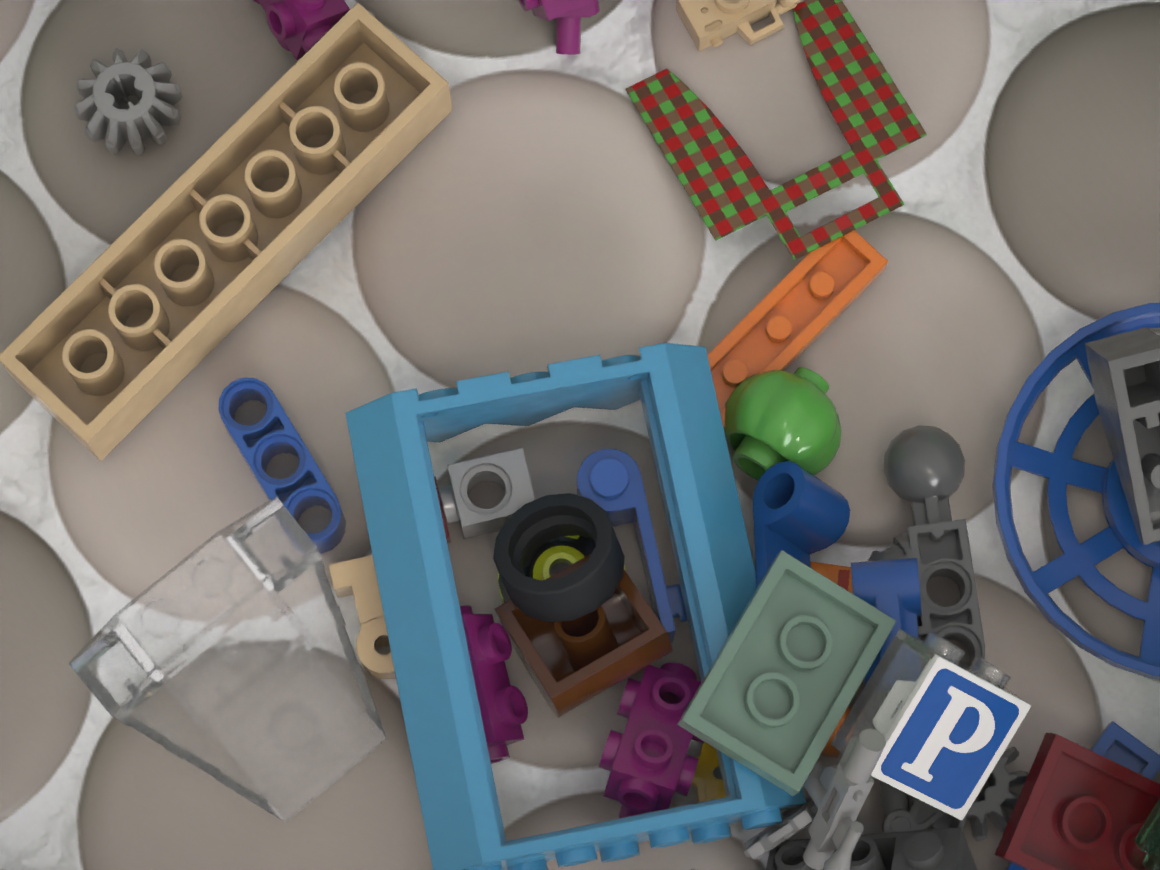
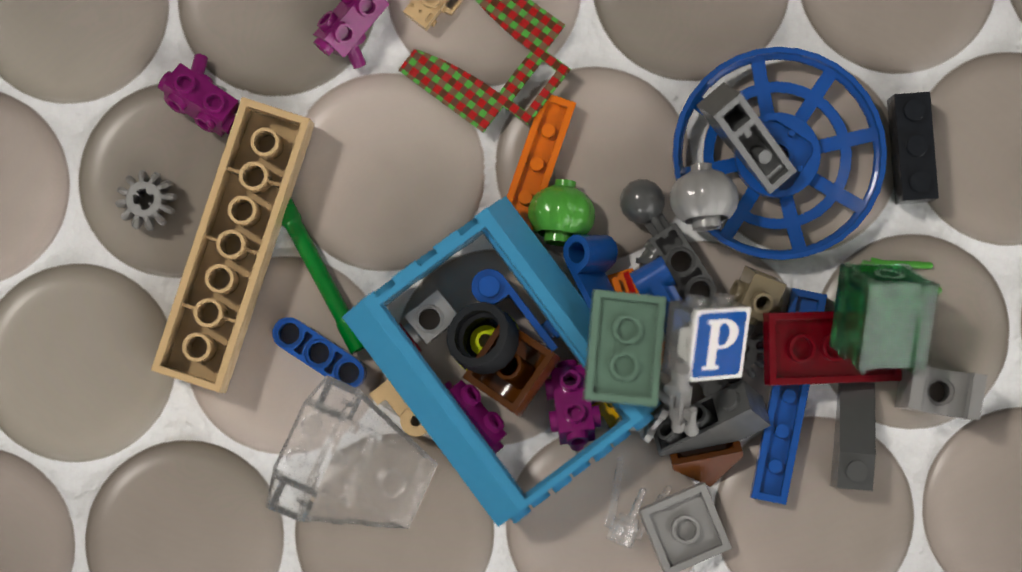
camera: 25 degrees left, 10 degrees up
(345, 344) = (293, 224): none -> green piece
(1031, 497) = (704, 197): none -> light grey plant
(1066, 696) = (759, 292): none -> dark tan brick

